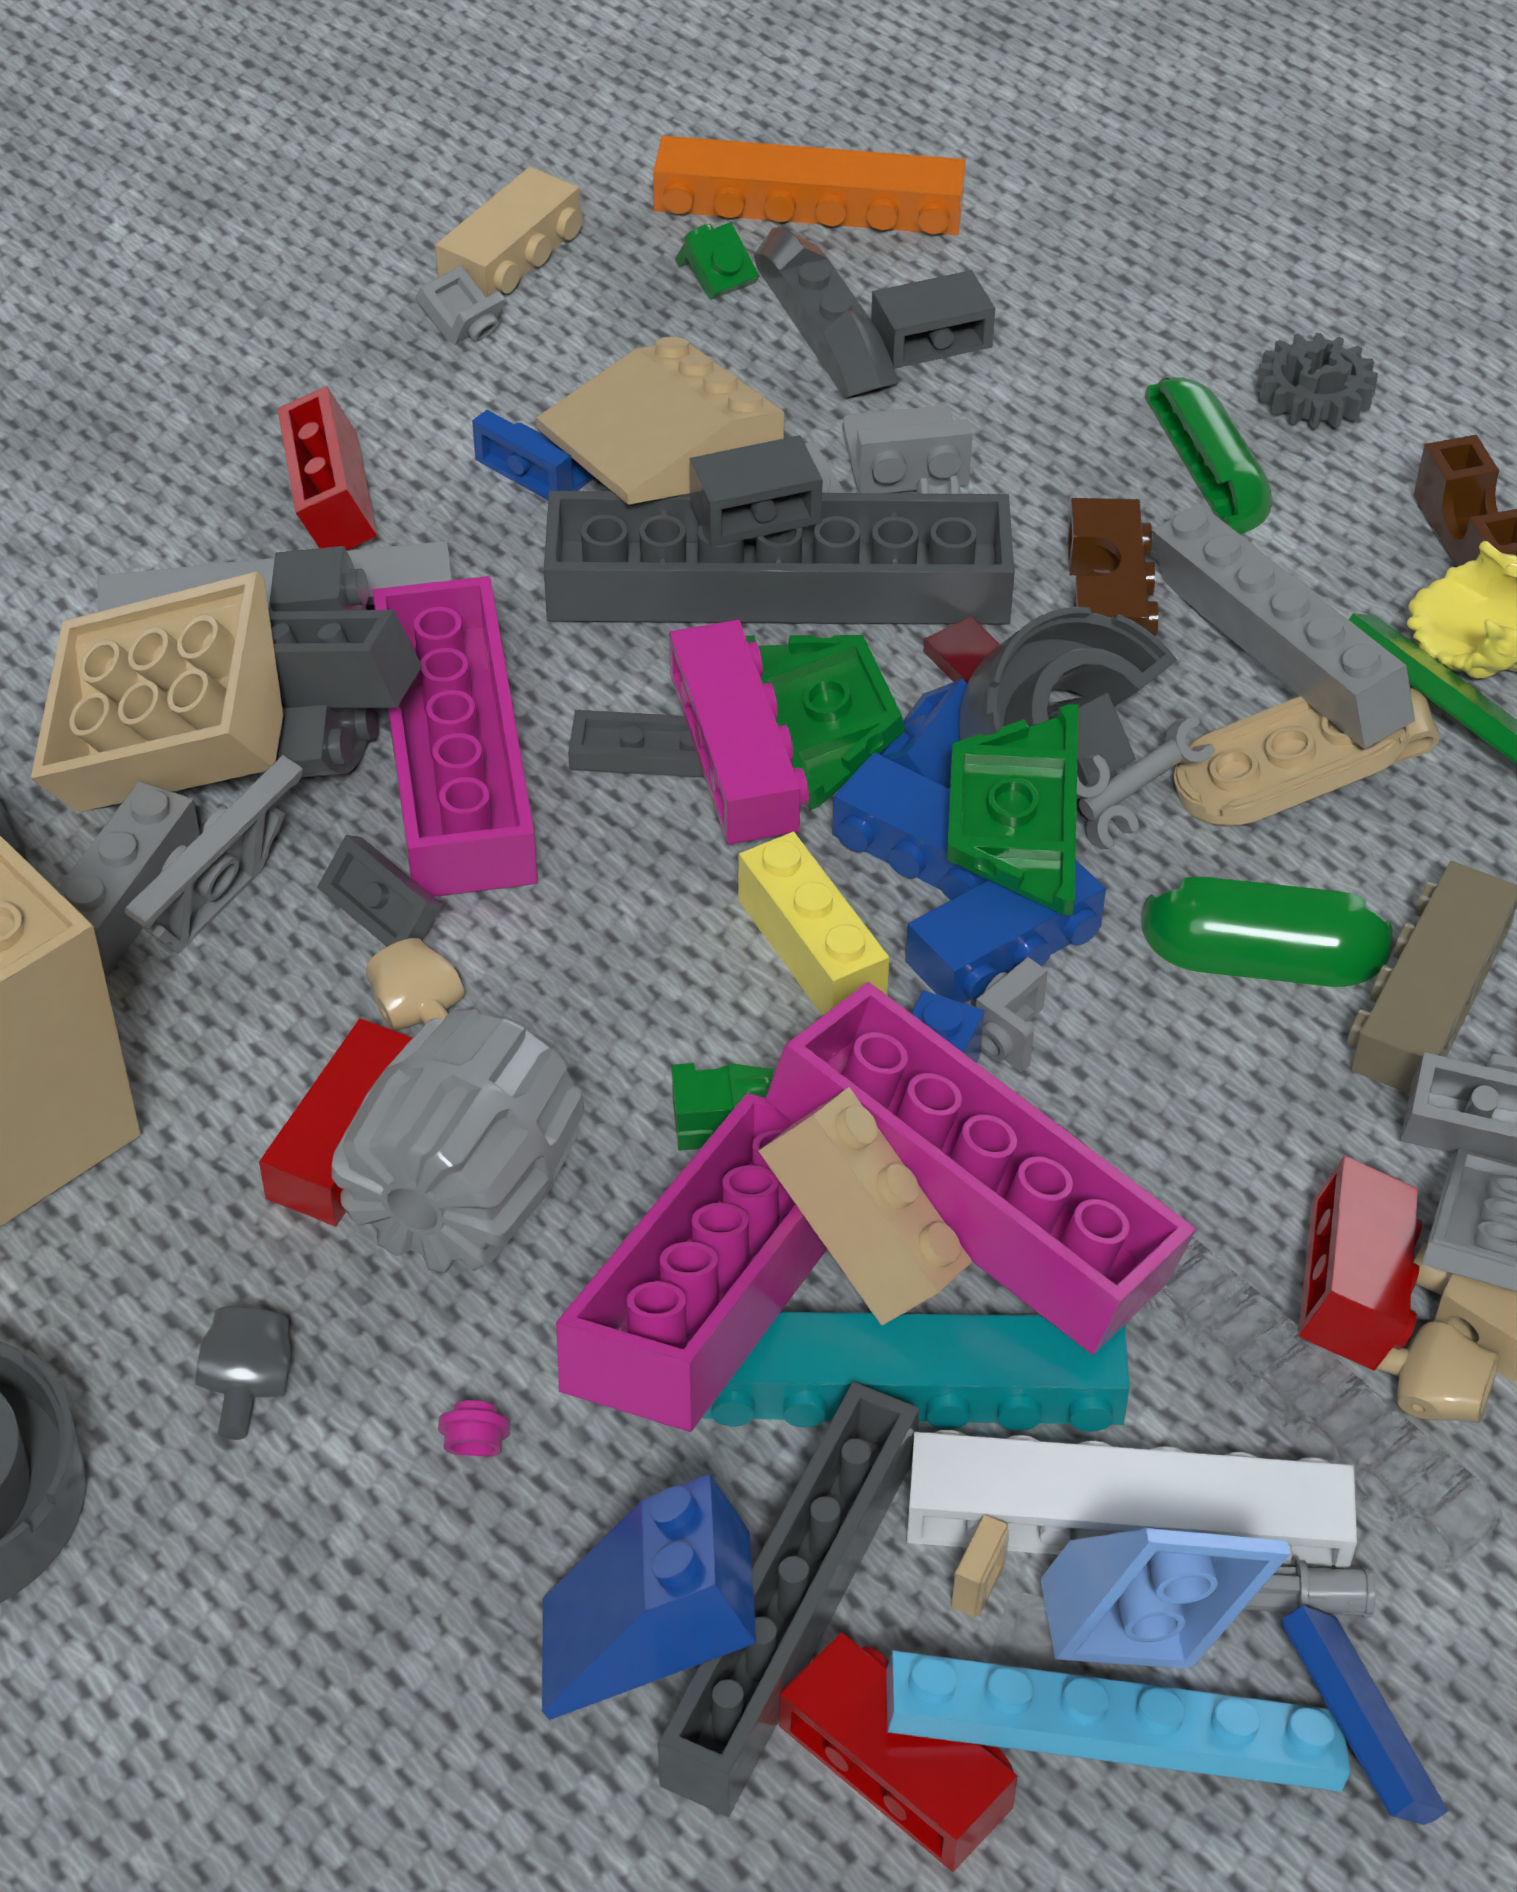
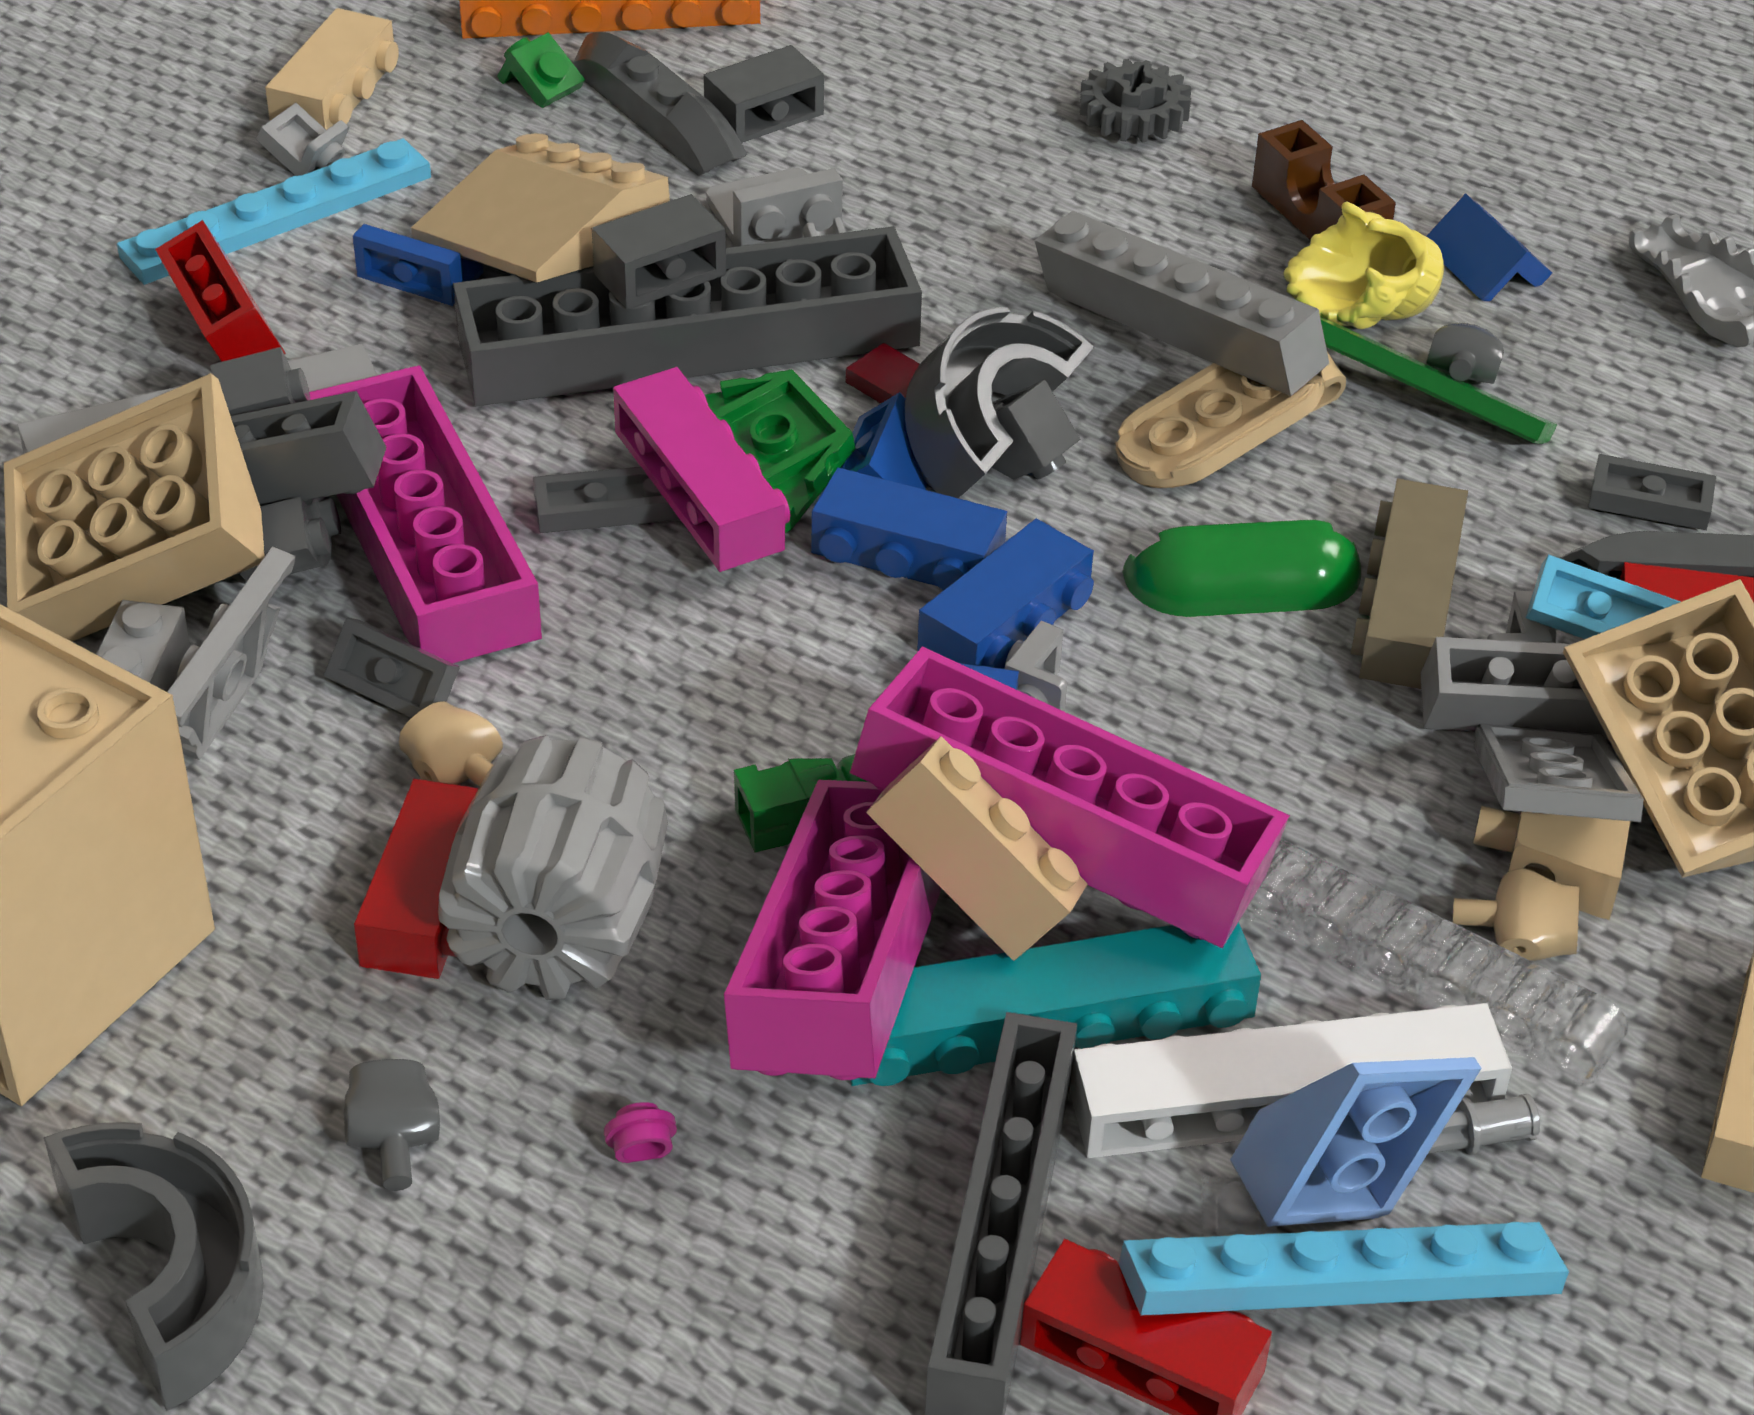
camera: 15 degrees left, 5 degrees down
(429, 371) = (286, 205): none -> medium azure plate
(649, 1599) = (871, 1244): blue slope -> none
(809, 922) = (822, 628): light yellow brick -> none
(980, 1566) = (1169, 1160): tan tile -> none
(1019, 808) = (995, 491): green wing -> none
(1101, 795) = (1060, 474): light grey bar -> none
(1108, 559) = (997, 268): reddish brown arch -> none
(1212, 451) = (1054, 167): green brick -> none
(1360, 1264) = (1433, 831): red brick -> none
(1364, 1716) = (1562, 1222): blue tile -> none

